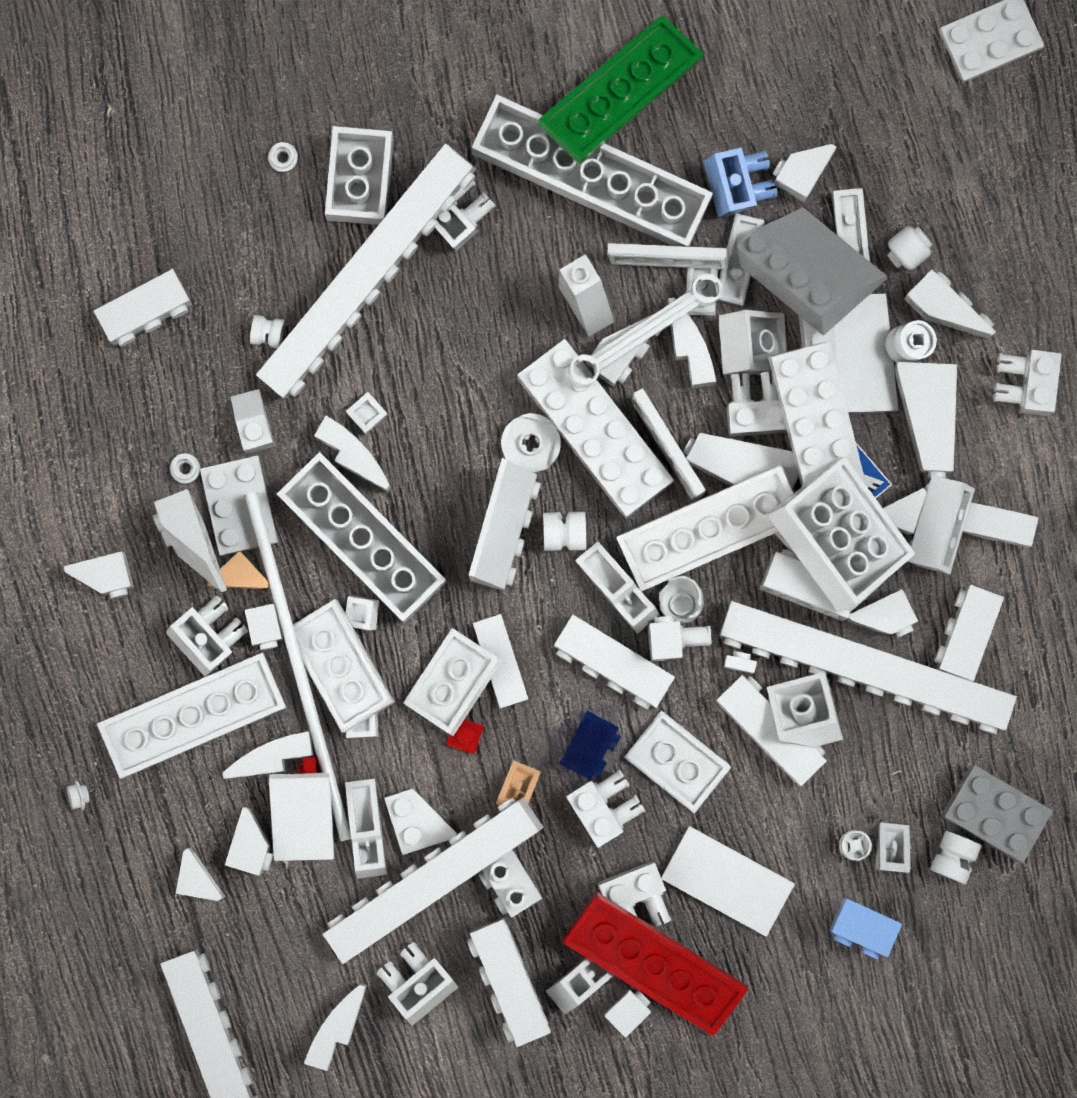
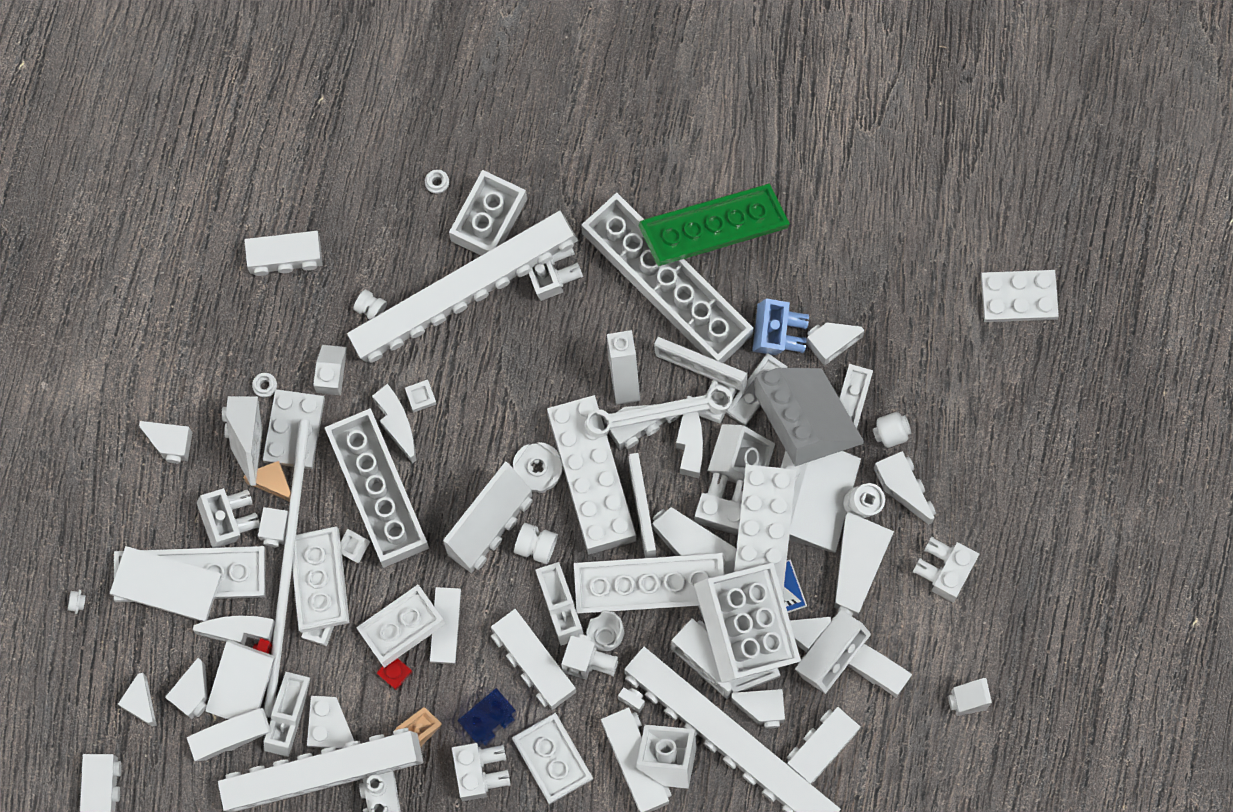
camera: 25 degrees right, 10 degrees down
(171, 738) = (165, 584): none -> white tile
(312, 878) = (228, 735): none -> white slope

